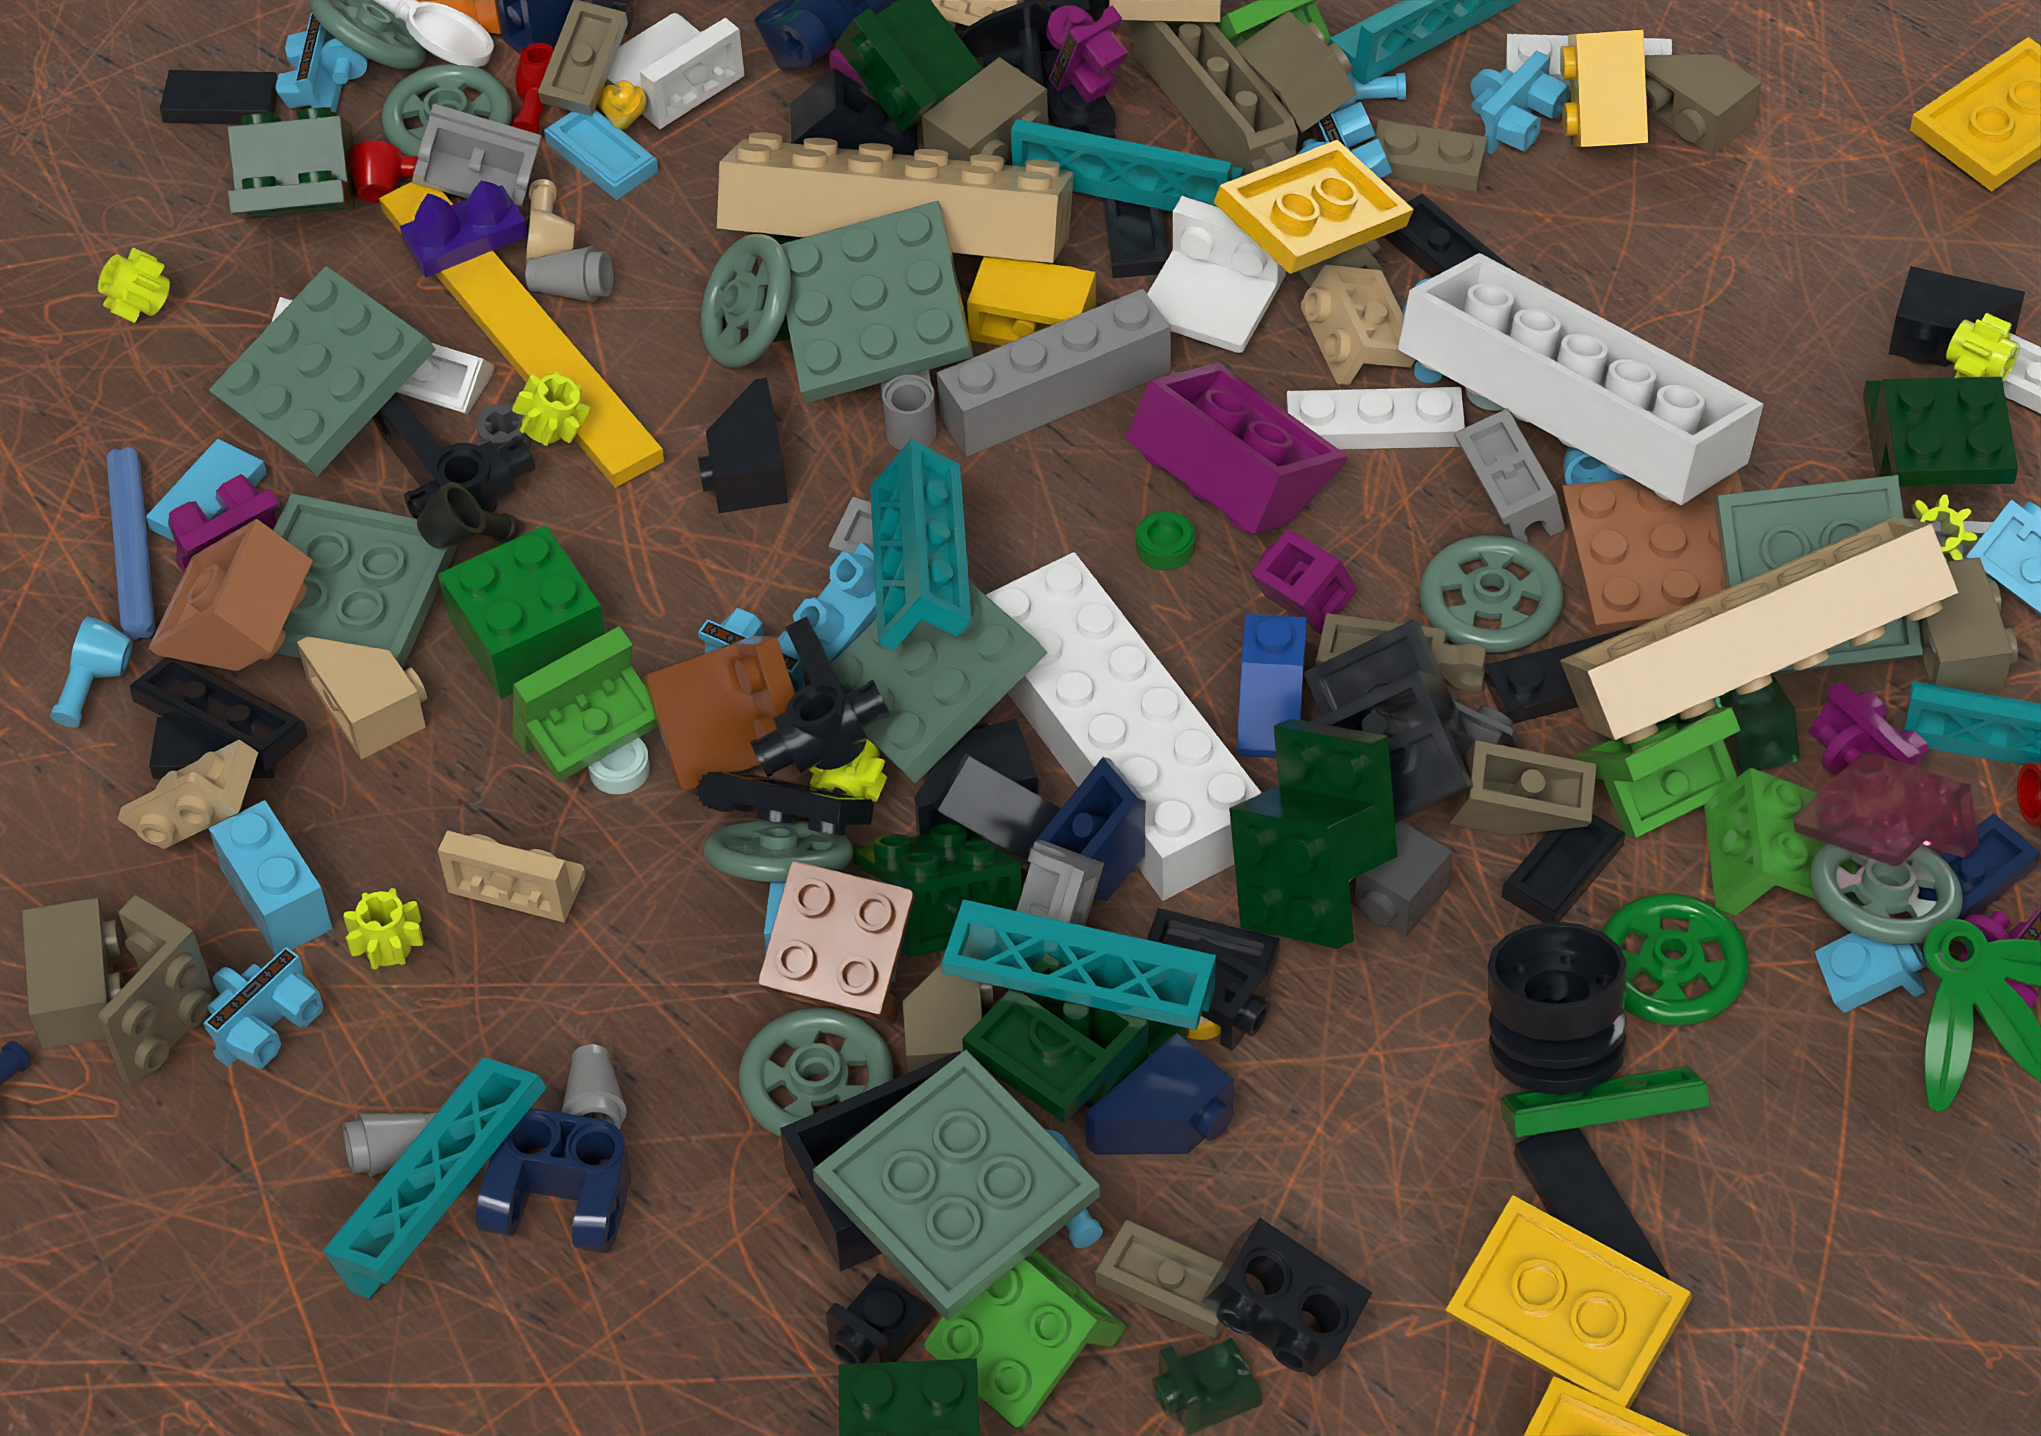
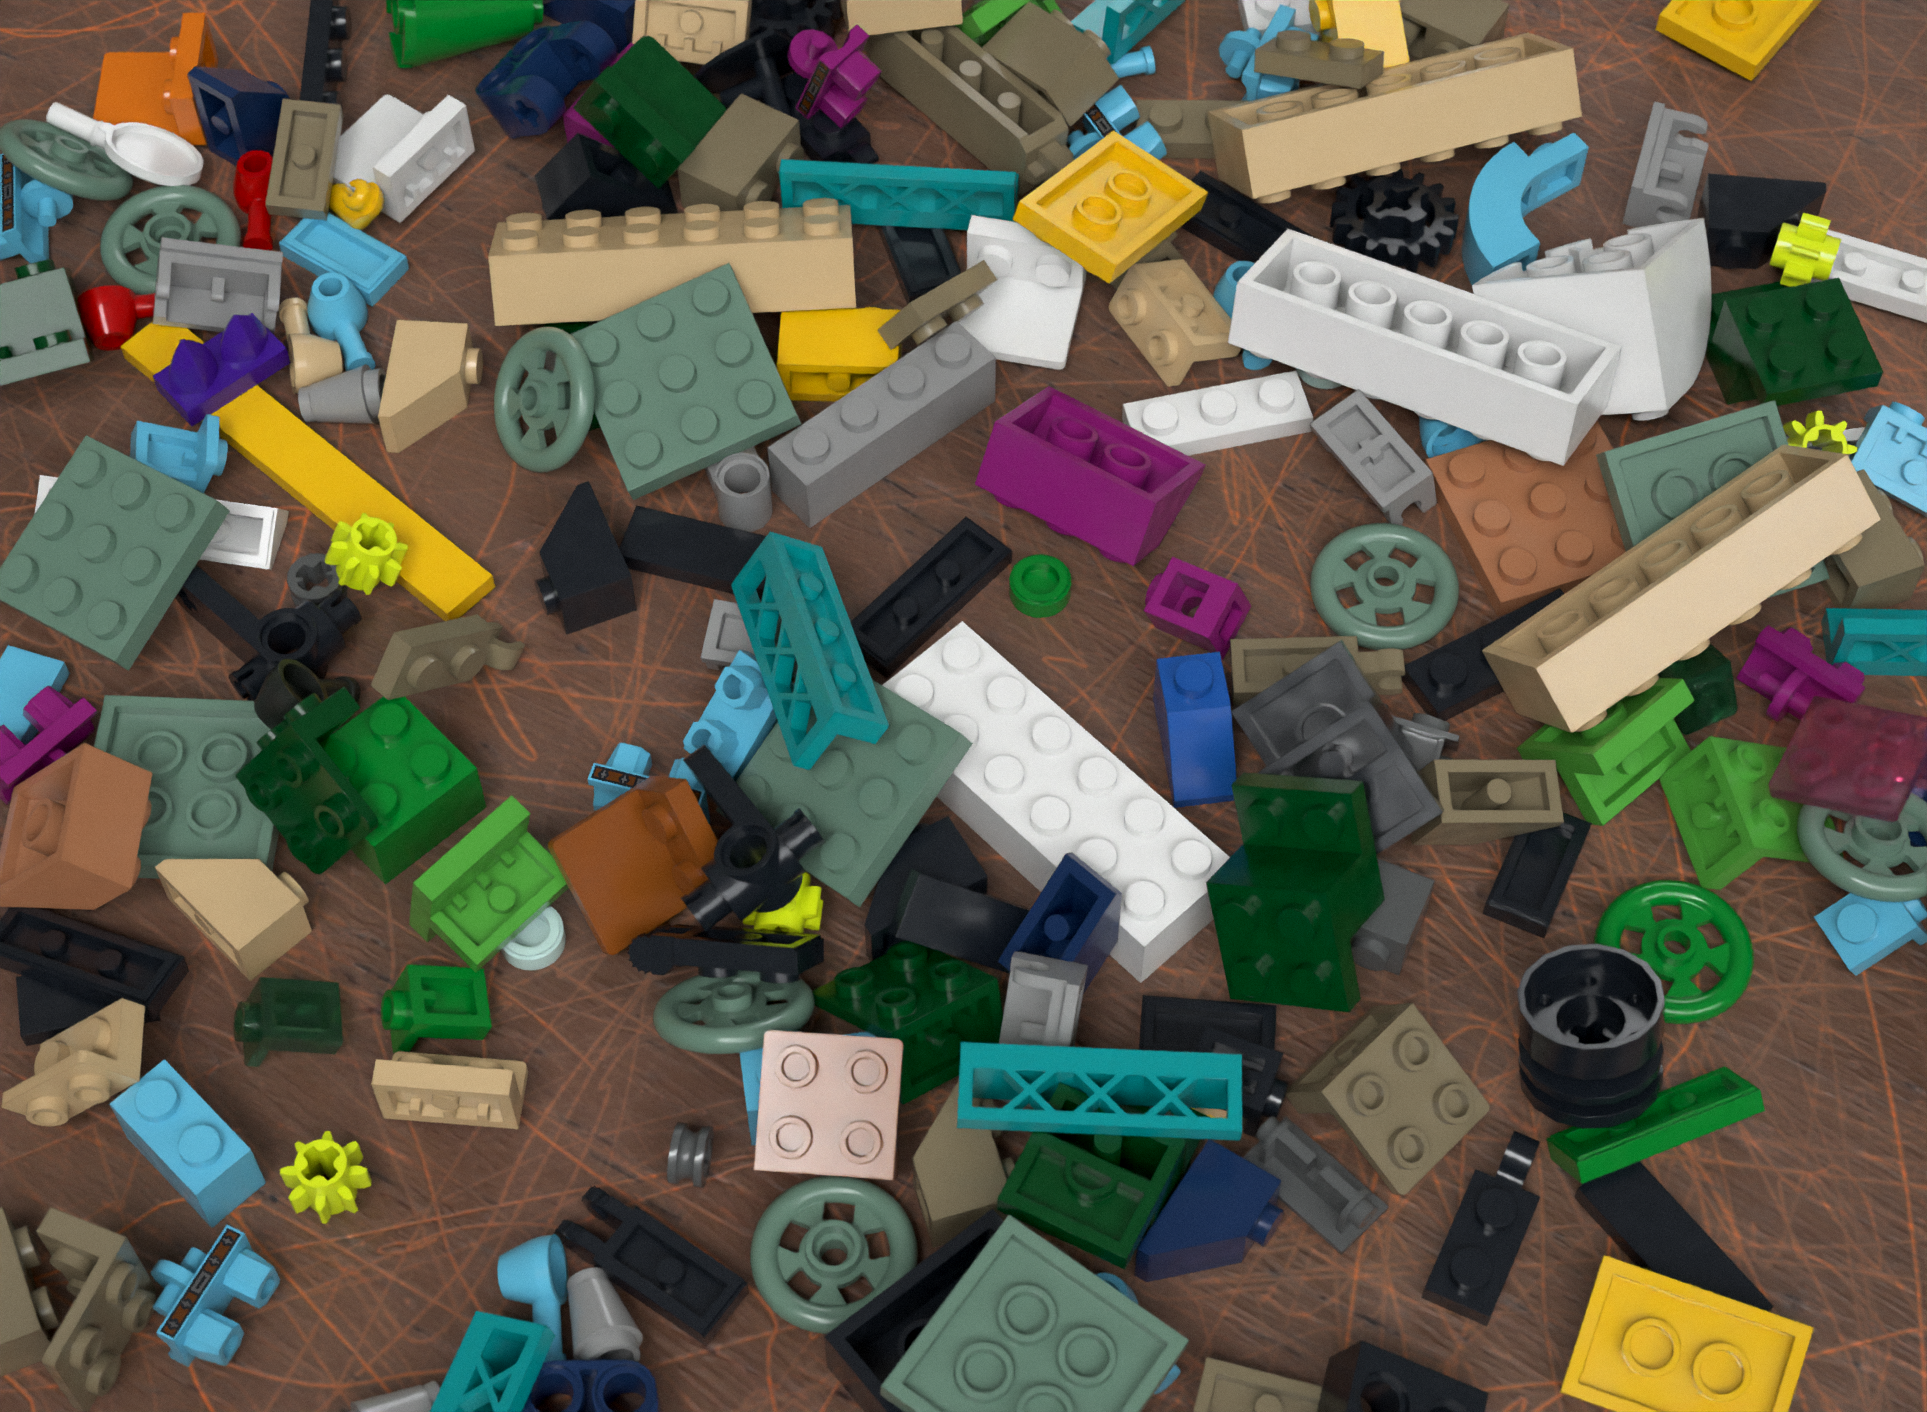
camera: 15 degrees left, 5 degrees up
(385, 791) = (289, 1018): none -> clear green bracket
(409, 297) = (181, 453): none -> medium azure bracket
(441, 593) = (303, 786): none -> dark green bracket
(517, 803) = (436, 1005): none -> green bracket
(548, 1045) = (538, 1276): none -> medium azure bar
(583, 200) = (339, 313): none -> medium azure bar
(595, 505) = (442, 656): none -> dark tan plate
(645, 269) = (426, 379): none -> tan slope
(656, 1056) = (657, 1266): none -> black hinge
(709, 968) = (690, 1154): none -> dark grey bush
(838, 452) = (688, 549): none -> black tile
(1058, 529) = (928, 595): none -> black tile
(1121, 274) = (926, 314): none -> dark tan plate
(1271, 1095) = (1315, 1184): none -> dark grey hinge
(1367, 1034) = (1393, 1093): none -> dark tan bracket
(1419, 1168) = (1485, 1236): none -> black plate
(1567, 108) = (1336, 63): none -> dark tan plate
(1590, 264) = (1395, 219): none -> black gear
(1617, 168) = (1402, 115): none -> tan brick
(1707, 261) = (1507, 192): none -> medium azure arch
(1809, 368) = (1634, 291): none -> white brick
(1876, 262) = (1666, 169): none -> light grey hinge

